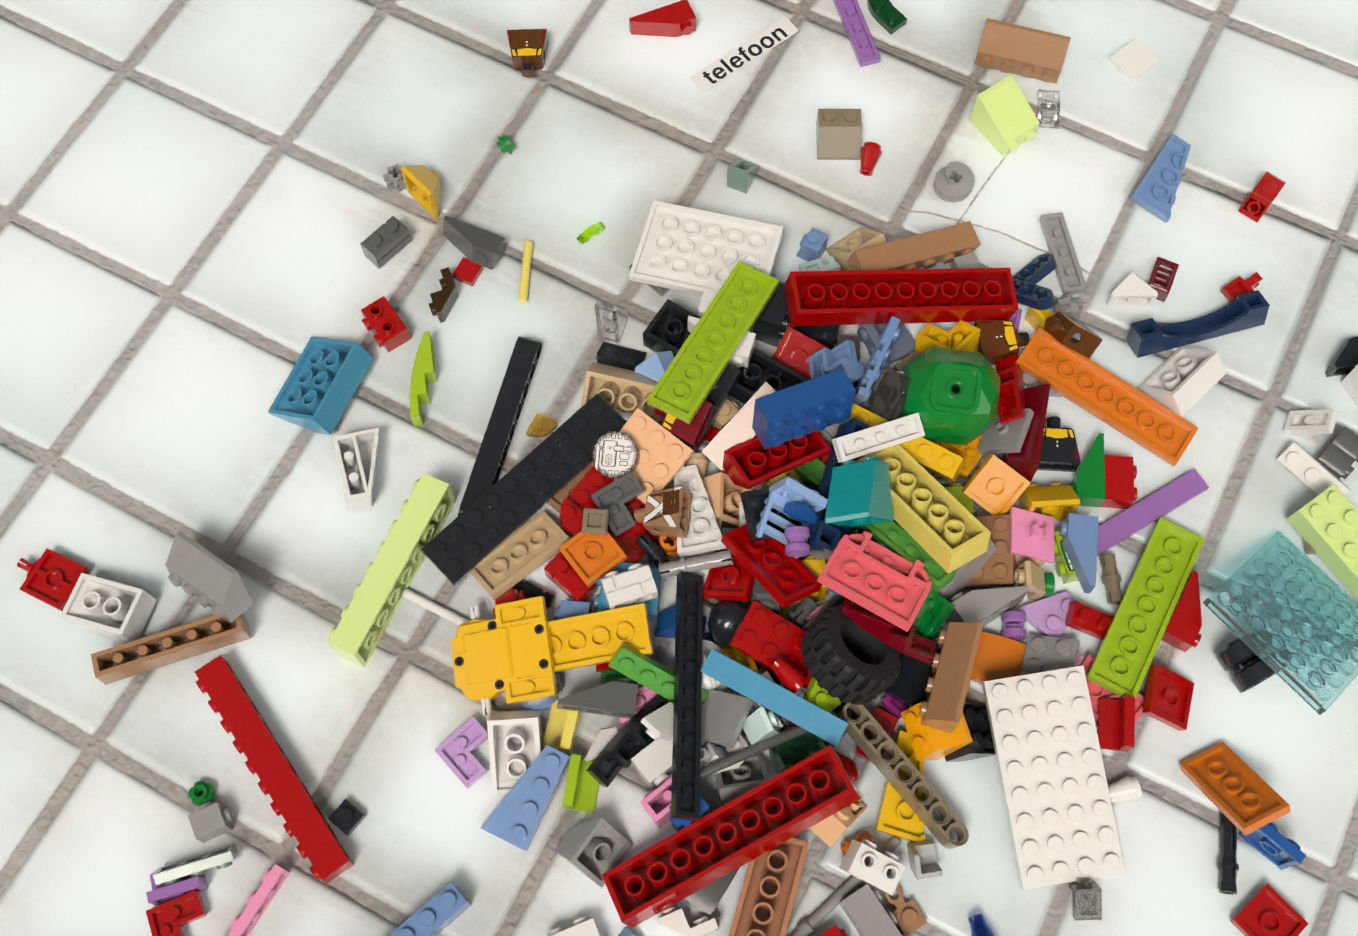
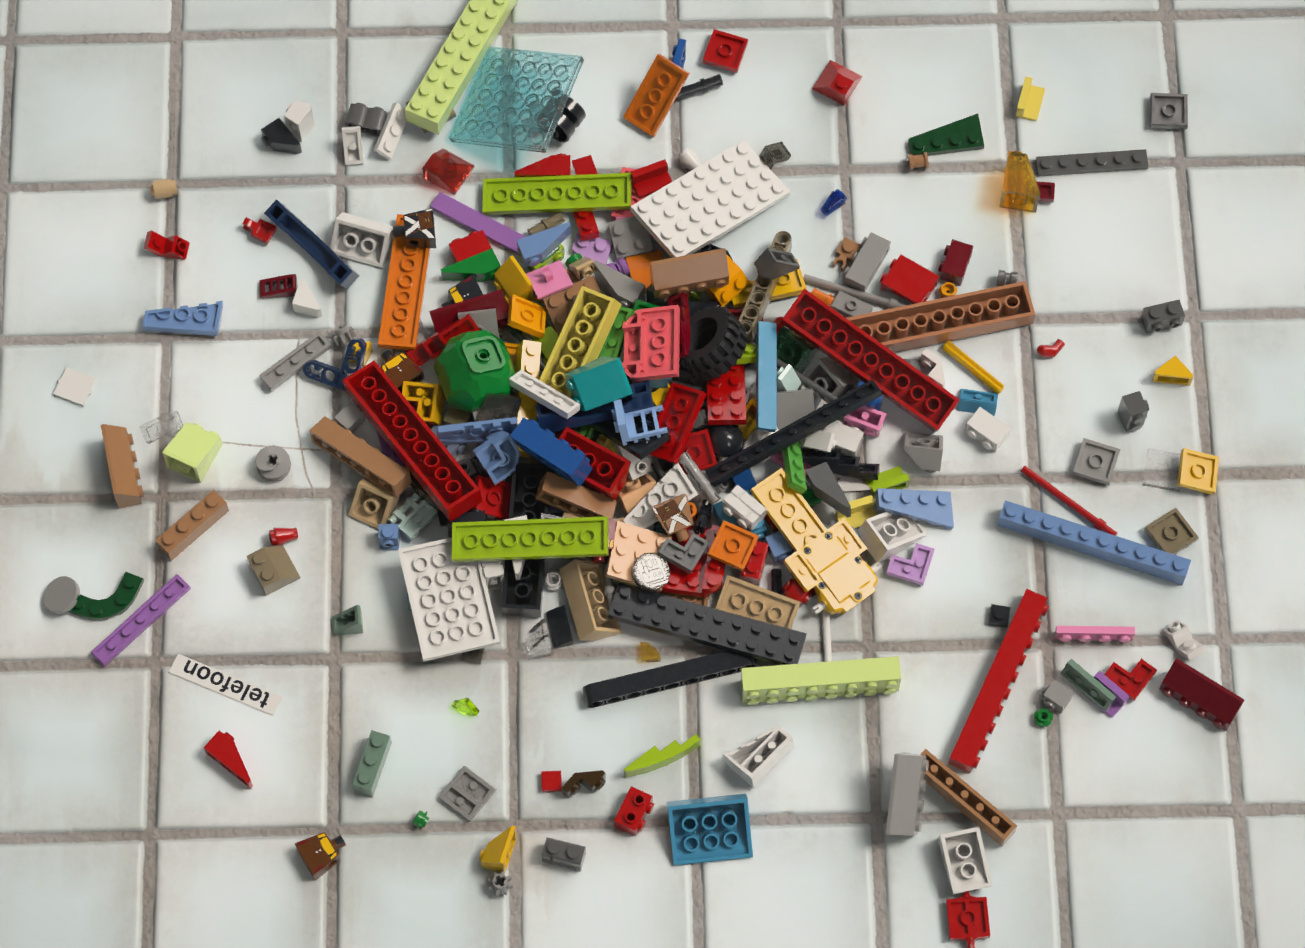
camera: 120 degrees left, 0 degrees up
(475, 243) = (527, 784): dark grey slope -> none
(505, 195) = (467, 793): none -> light grey slope
(525, 271) = (526, 738): light yellow bar -> none
(584, 126) = (372, 763): none -> sand green brick
(595, 521) = (712, 551): dark tan tile -> none
(655, 365) = (560, 584): light blue slope -> none
(789, 675) = (746, 373): red cone -> none
(797, 541) = (653, 406): medium lavender wheel -> none
(800, 512) = (631, 410): blue tile -> none
(824, 877) = (850, 305): none -> light grey plate
(872, 866) = (832, 278): white brick -> none
(919, 796) = (775, 263): none -> dark grey slope
(923, 87) = (192, 525): none -> medium nougat brick
(923, 859) = (809, 254): light grey panel -> none
(1063, 327) = (371, 318): reddish brown torso -> none
(1166, 433) = (418, 229): none -> torso
(1168, 697) = (613, 157): red plate -> none
(1172, 661) = (584, 166): none -> red sticker
(1235, 509) = (447, 170): none -> clear red slope
(1335, 221) = (163, 188): none -> tan brick

